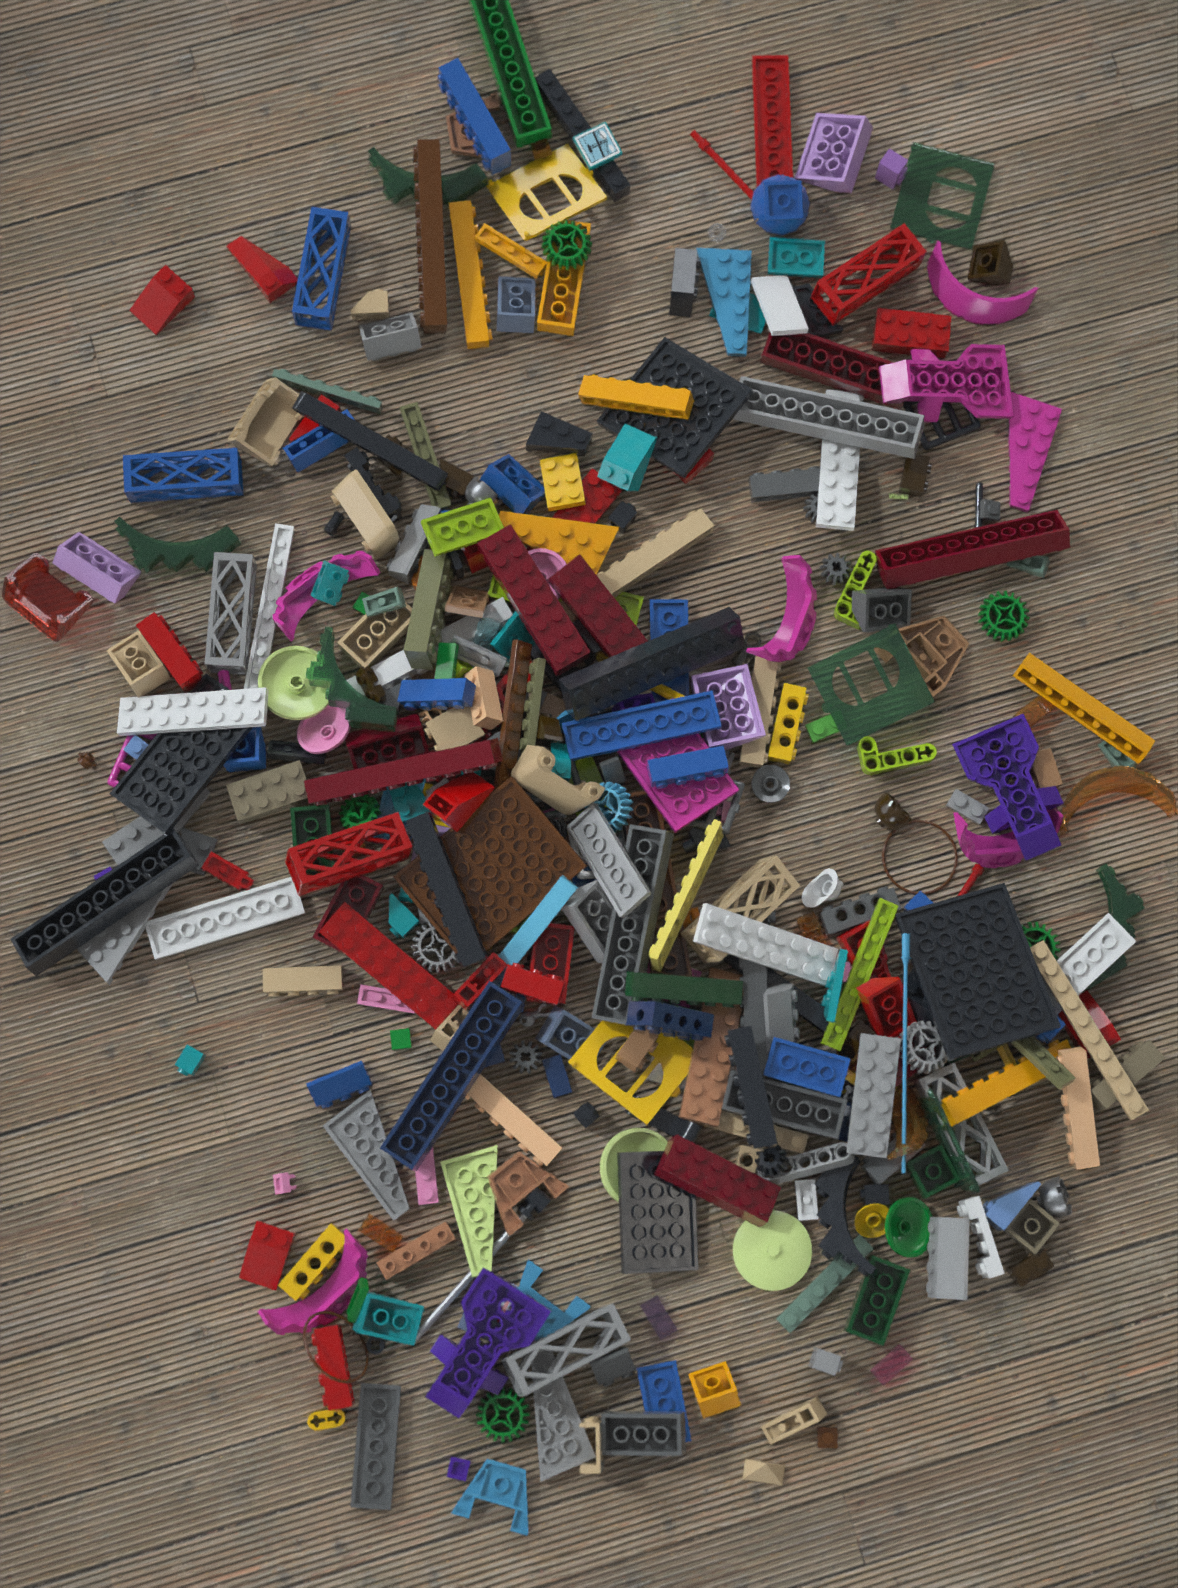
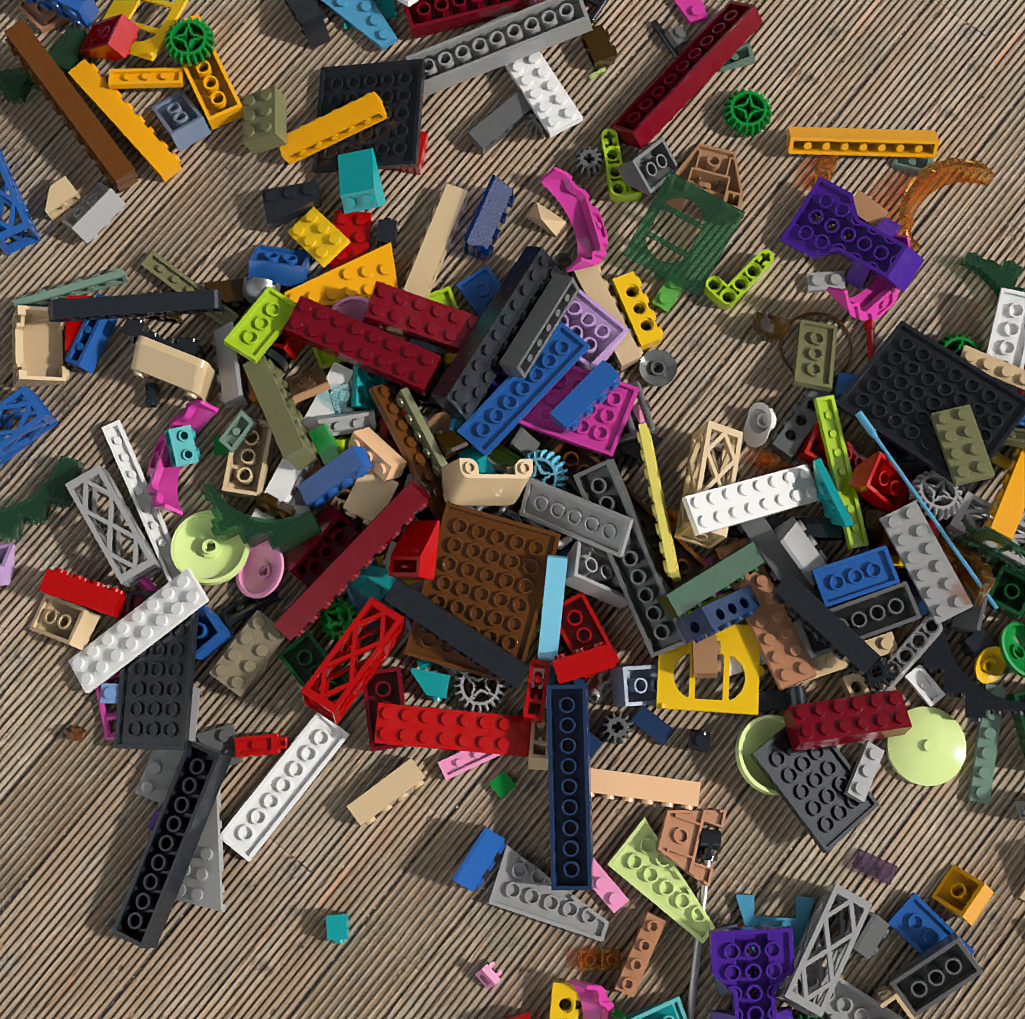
camera: 30 degrees left, 0 degrees up
(502, 197) = (110, 38): none -> red slope
(584, 352) = (264, 120): none -> olive brick
(691, 681) = (539, 326): none -> dark grey brick
(704, 1234) = (864, 772): none -> light grey plate
(715, 562) = (488, 219): none -> clear blue slope
(766, 593) = (546, 219): none -> tan slope
(910, 863) = (815, 355): none -> olive plate
(972, 1020) = (962, 445): none -> olive plate

